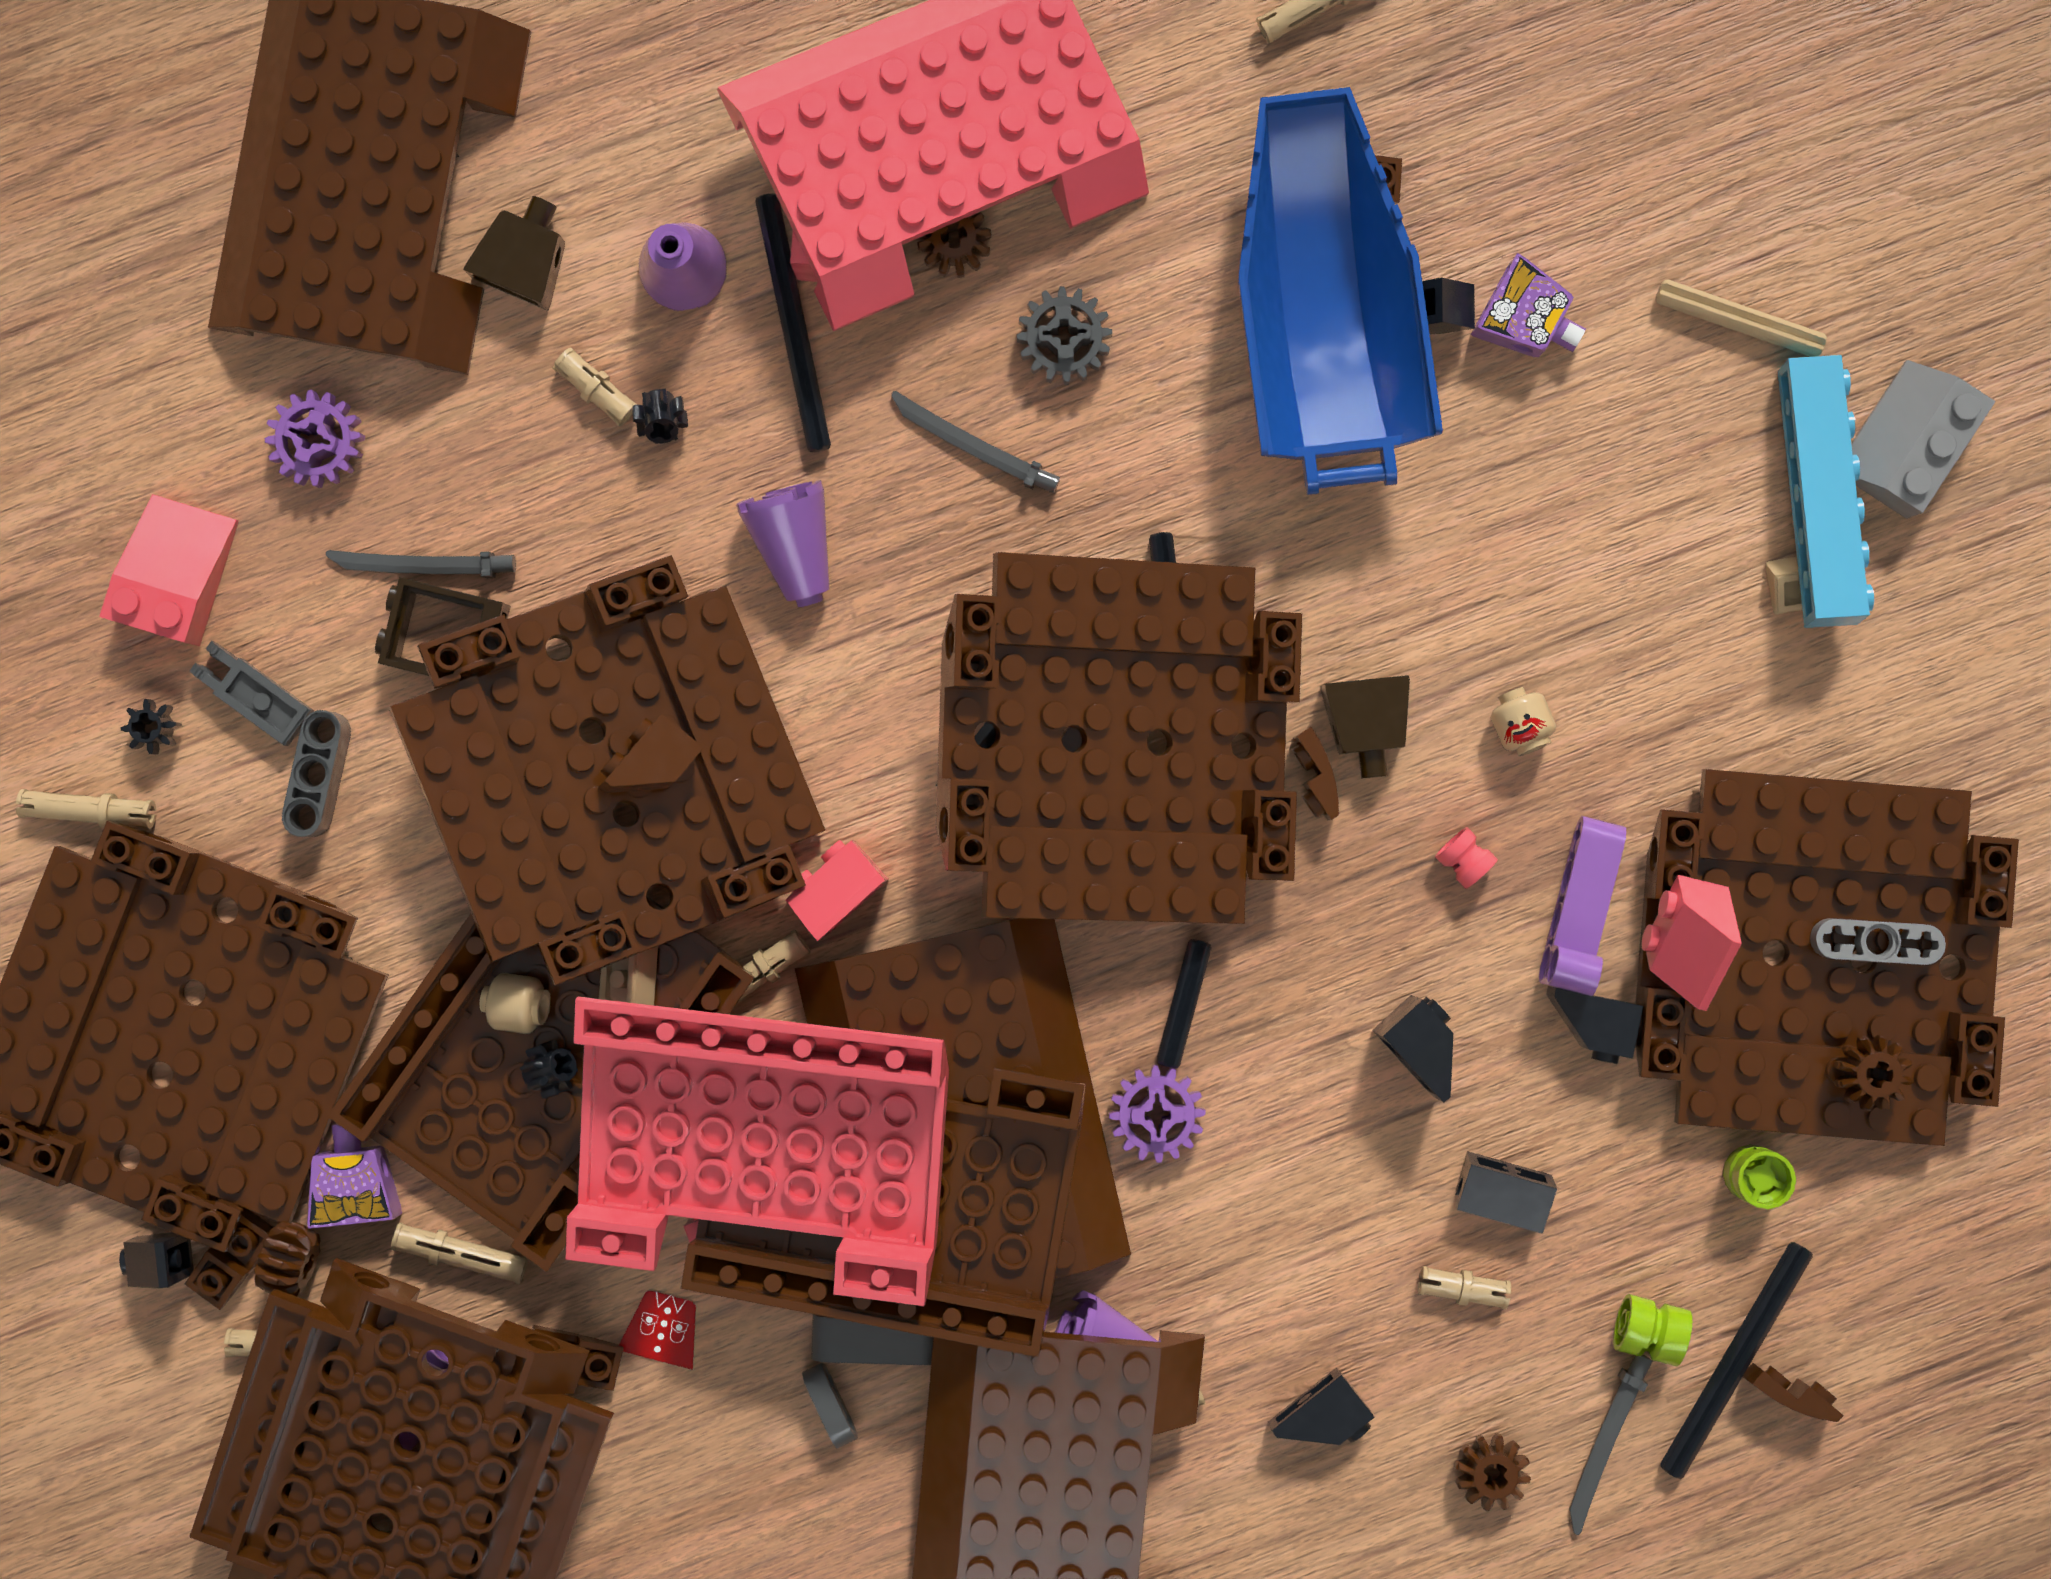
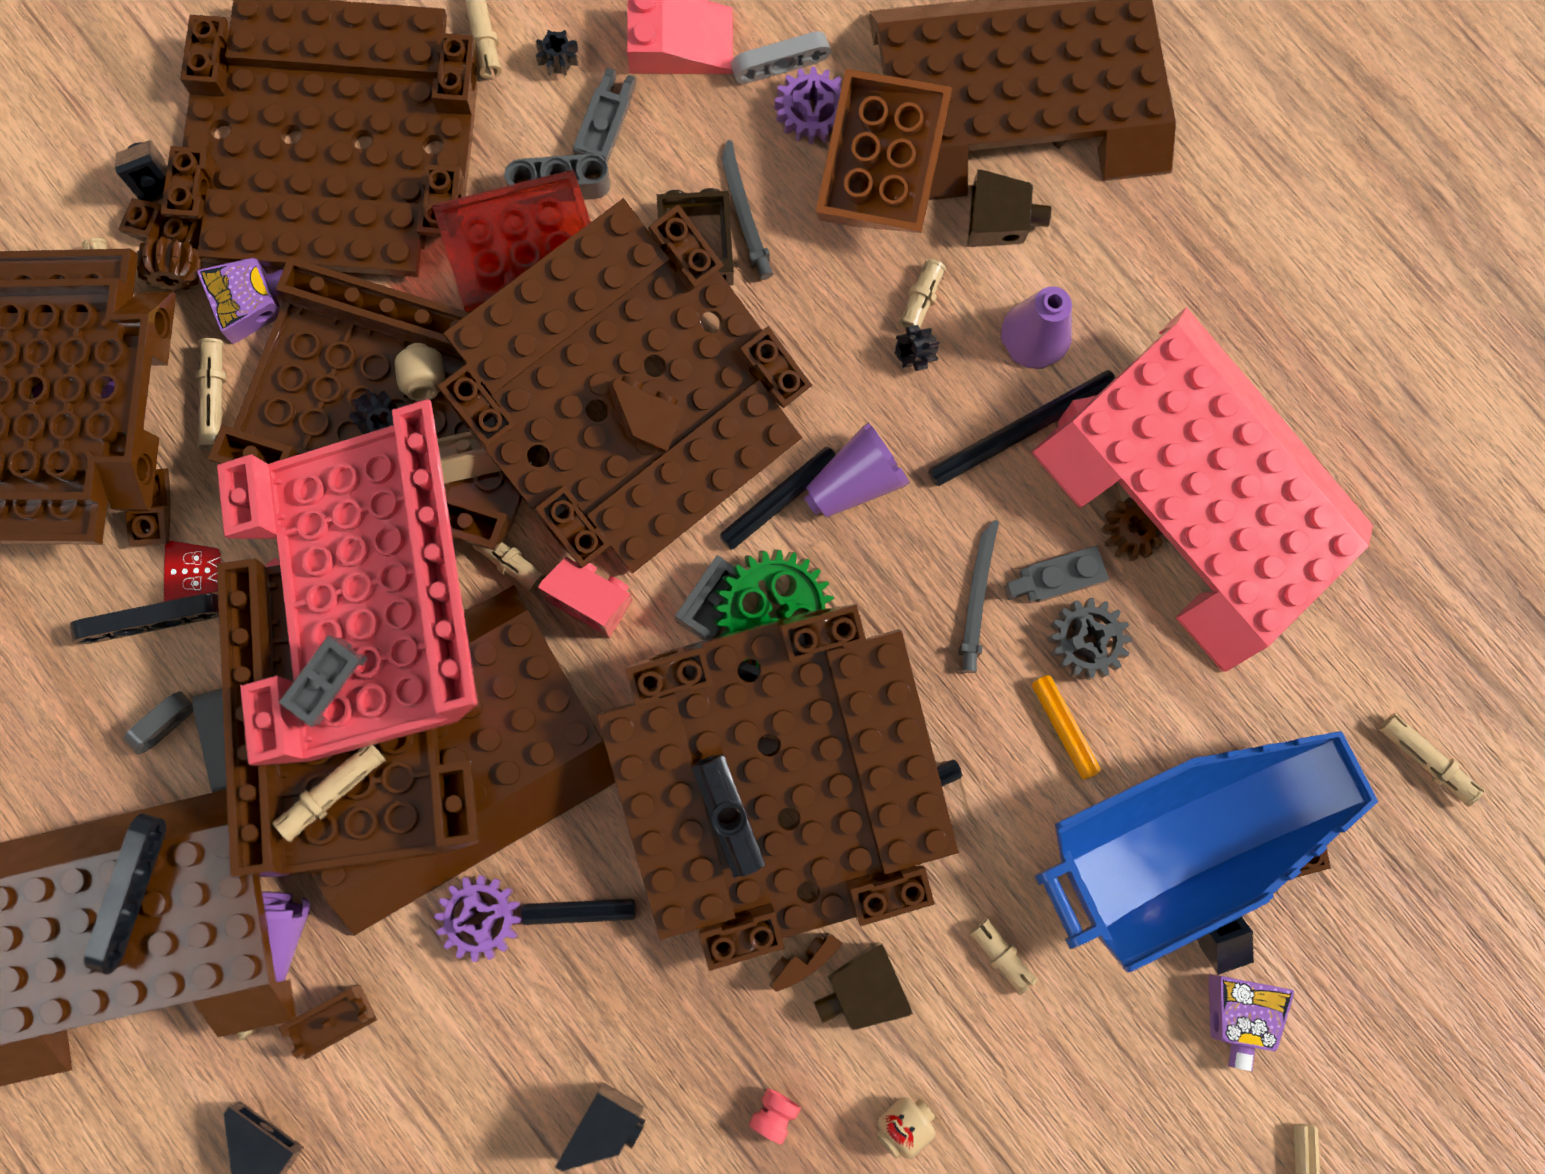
camera: 60 degrees right, 10 degrees down
(240, 457) = (780, 57): none -> light grey beam
(381, 850) = (507, 231): none -> clear red slope
(412, 377) = (883, 152): none -> dark orange slope
(706, 1391) = (145, 619): none -> black beam
(788, 637) = (775, 500): none -> black axle
(858, 1201) = (322, 680): none -> dark grey hinge
(884, 748) = (697, 610): none -> dark grey hinge
(910, 645) = (802, 592): none -> green gear
(980, 343) = (1059, 576): none -> dark grey hinge
(980, 1237) = (324, 795): none -> tan pin
(1018, 1474) = (125, 893): none -> black beam
(1112, 808) = (736, 837): none -> black piece
(1153, 397) = (1066, 727): none -> light orange axle
(1216, 1304) = (329, 1022): none -> reddish brown hinge
(1380, 555) = (1003, 956): none -> tan pin

